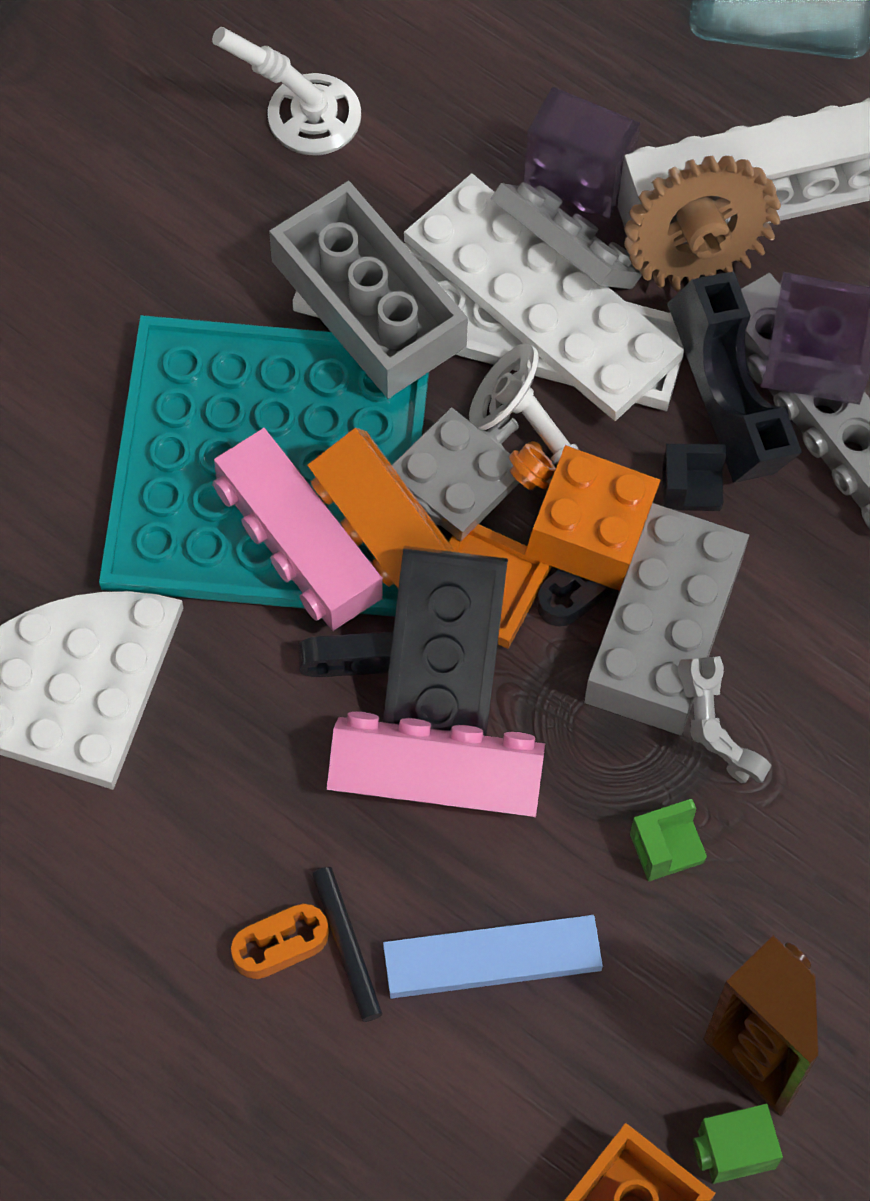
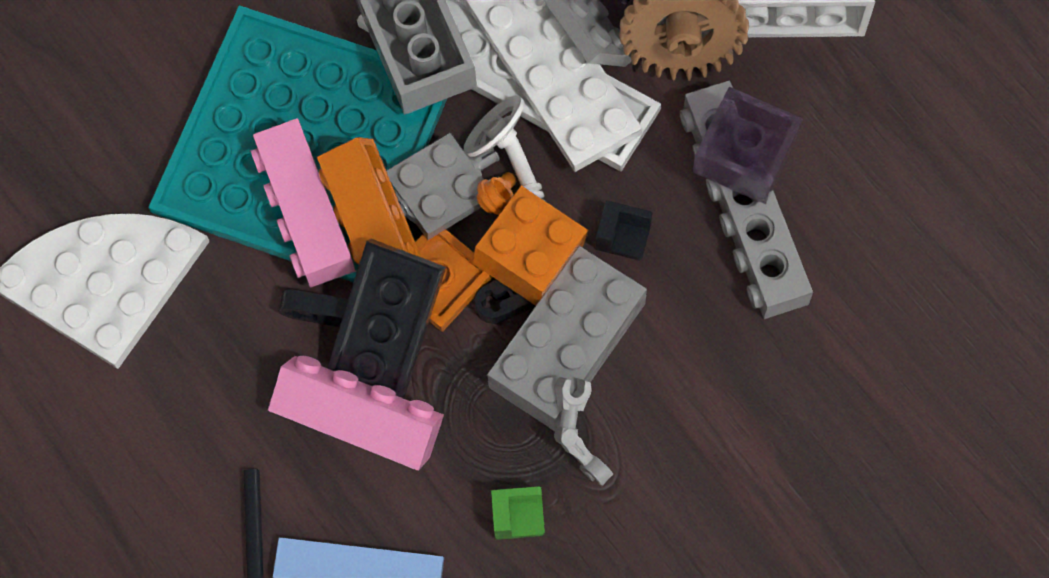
camera: 20 degrees right, 5 degrees up
(274, 930) = (205, 526): orange beam -> none
(712, 329) = (668, 123): black arch -> none

